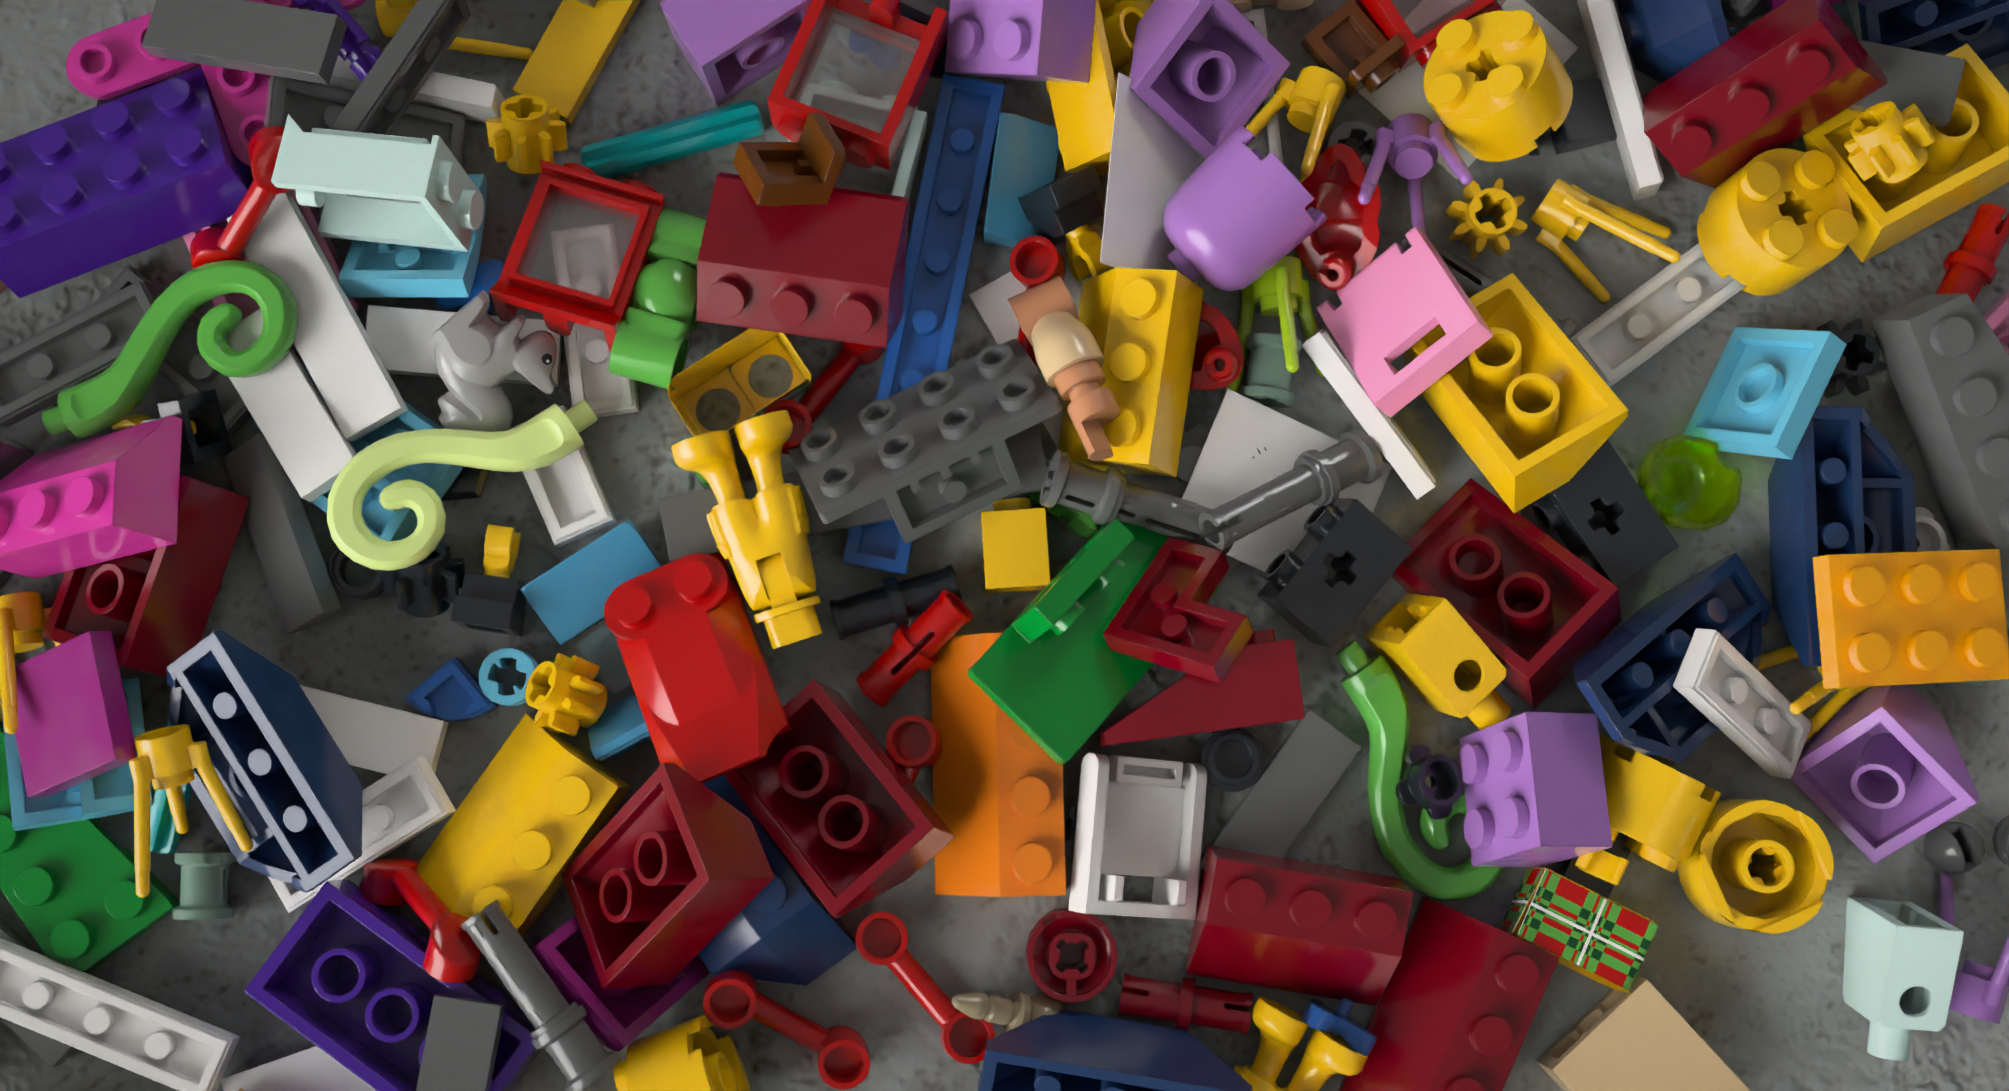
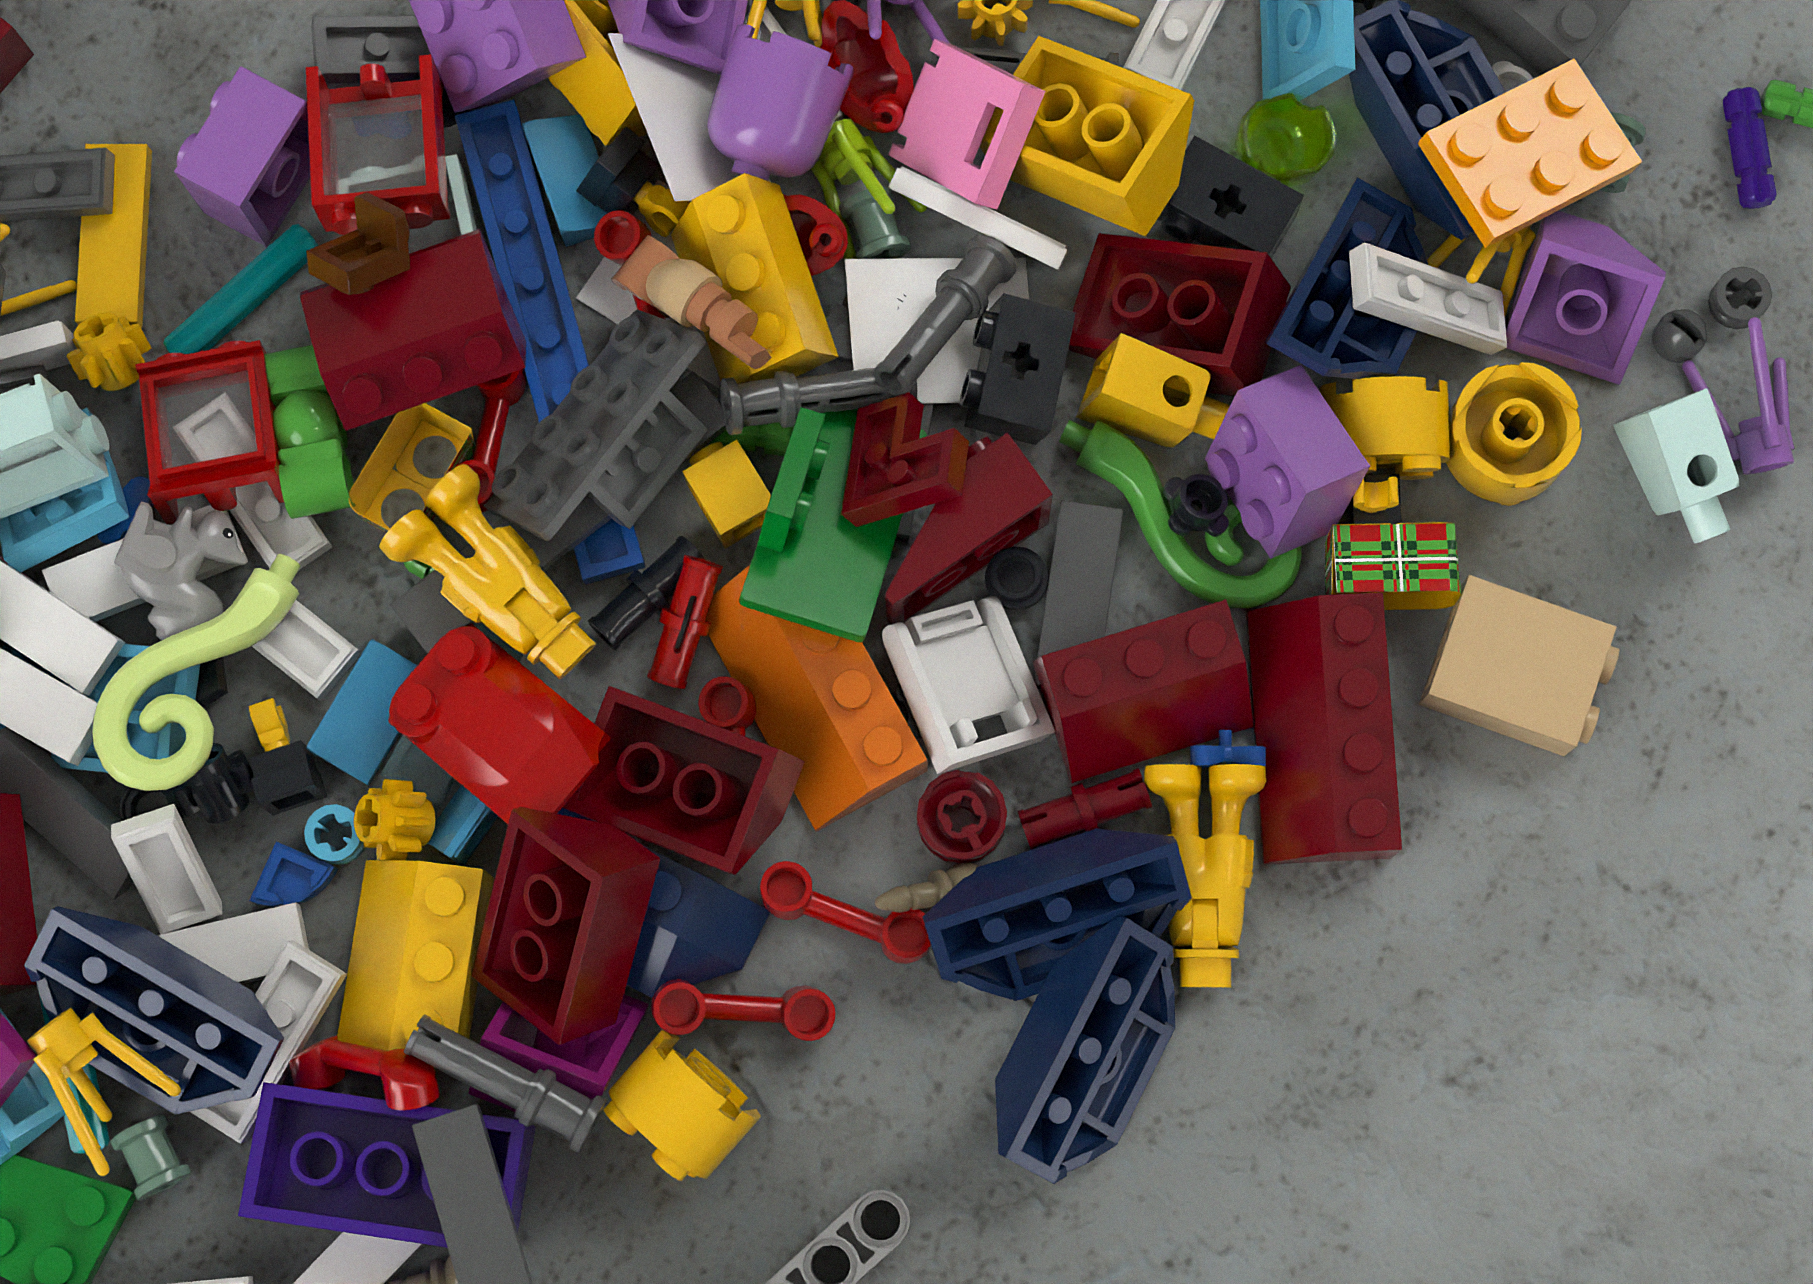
camera: 20 degrees left, 5 degrees down
(342, 636) = (166, 869): none -> white tile

